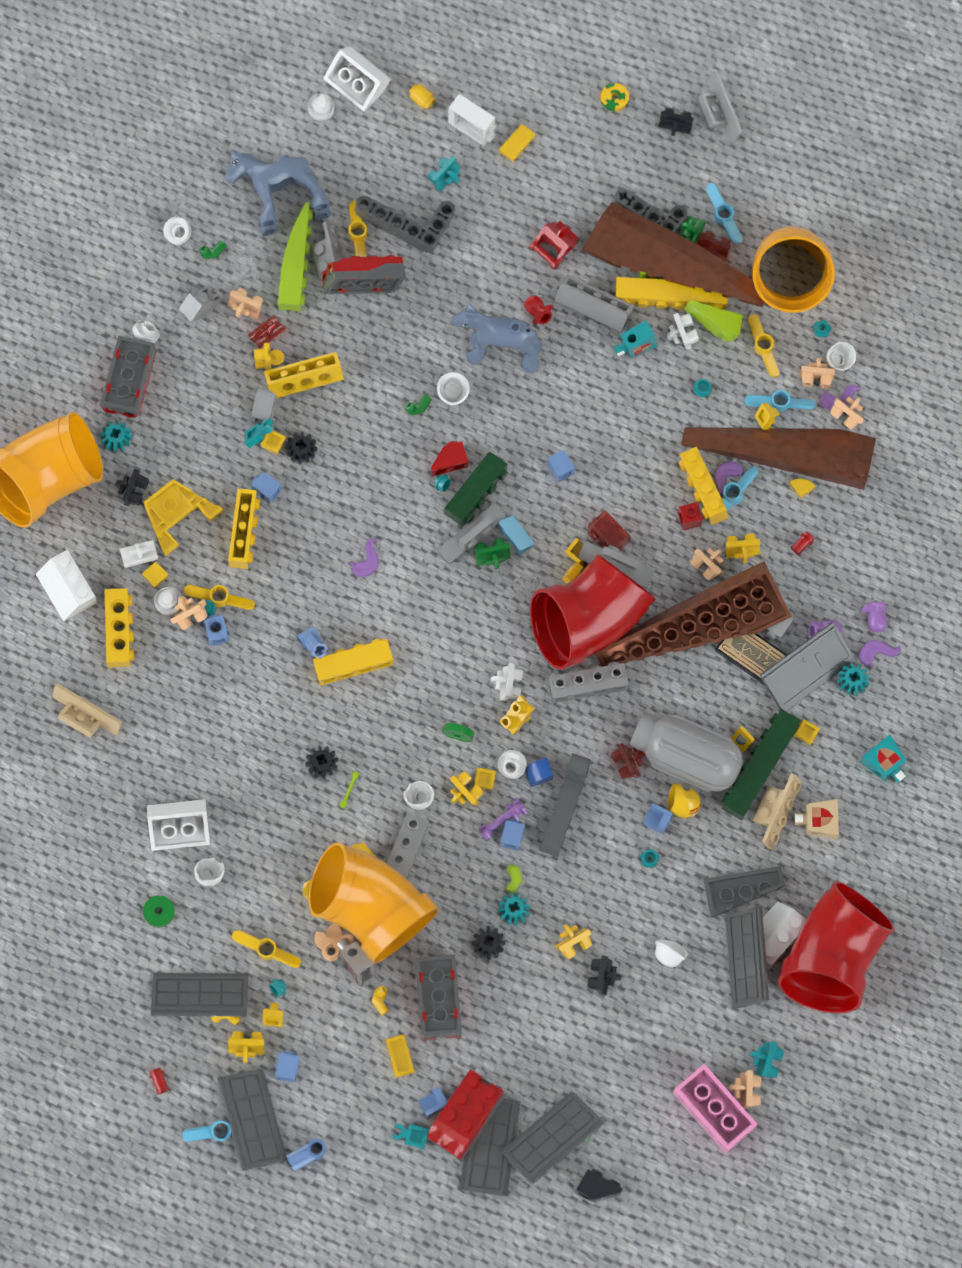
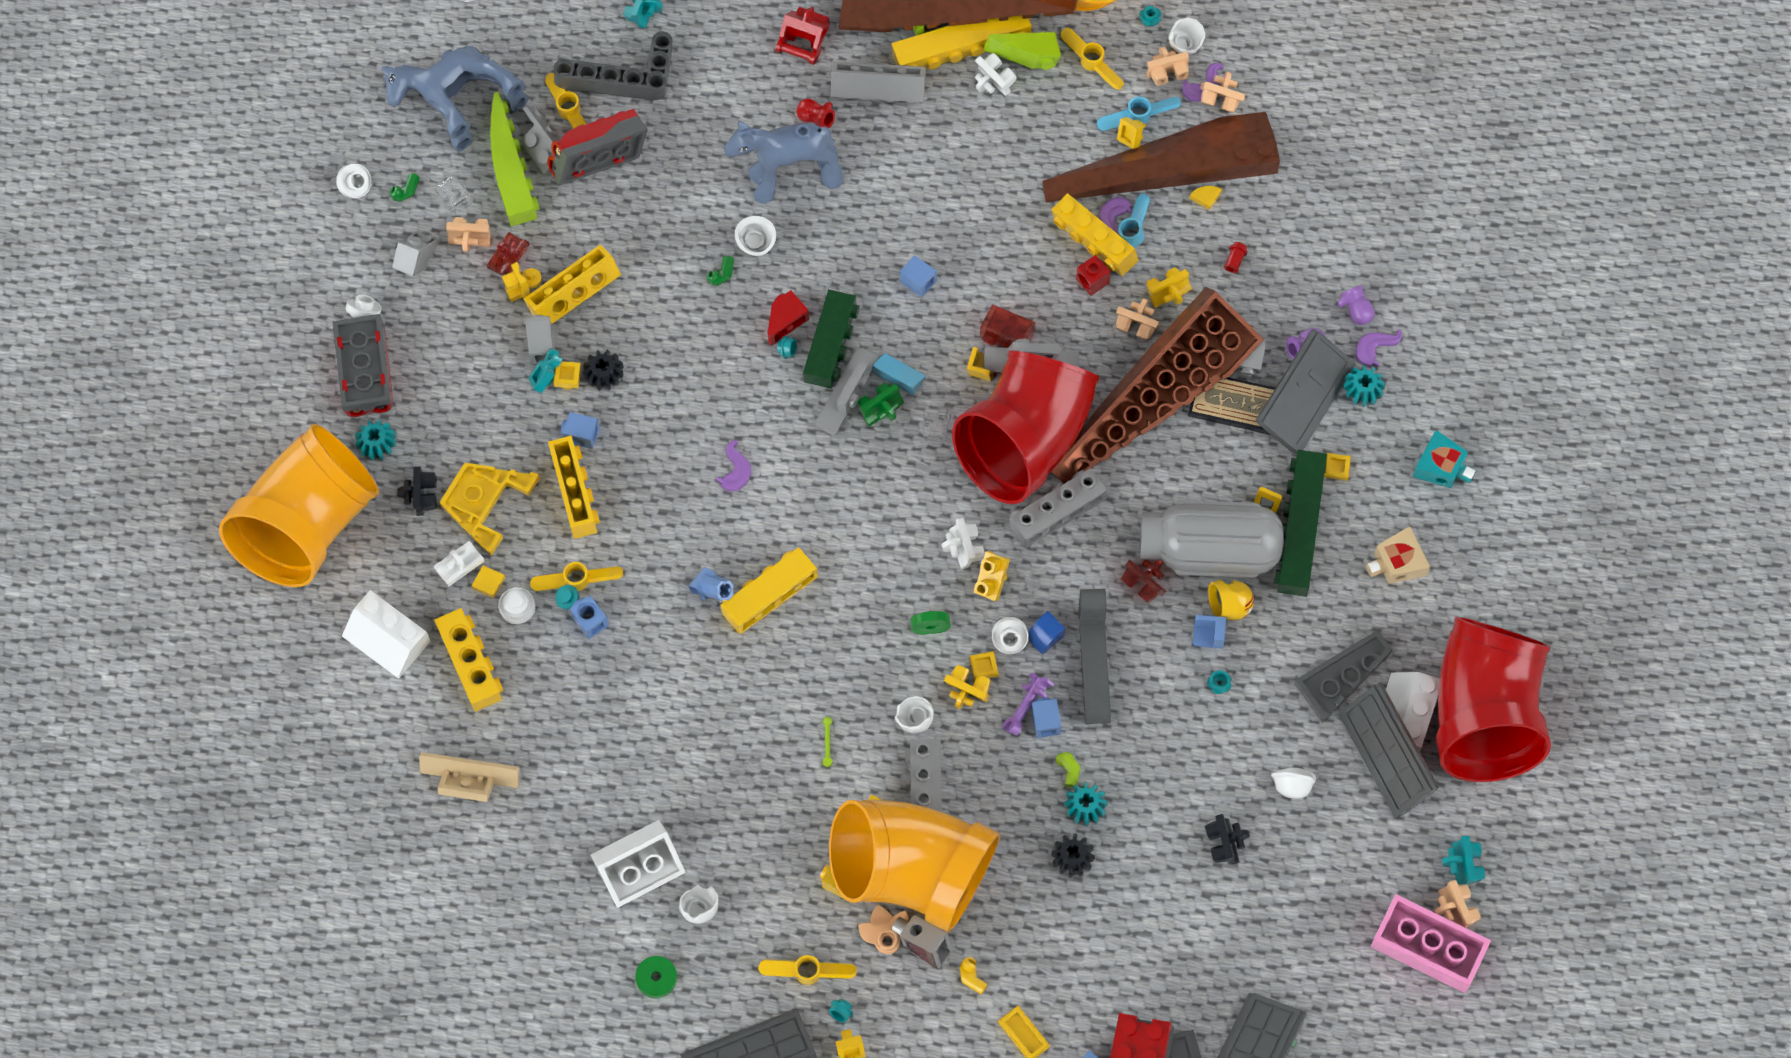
camera: 15 degrees left, 5 degrees down
(182, 617) = (542, 617): light nougat hips -> none
(314, 765) = (771, 717): black gear -> none
(438, 997) = (1041, 943): dark grey piece -> none
(572, 573) = (985, 389): yellow tile -> none
(581, 937) = (1179, 805): yellow hips -> none
(636, 340) = (946, 104): teal torso -> none
(702, 388) = (1043, 130): teal plate -> none
(775, 809) = (1340, 567): tan bracket -> none

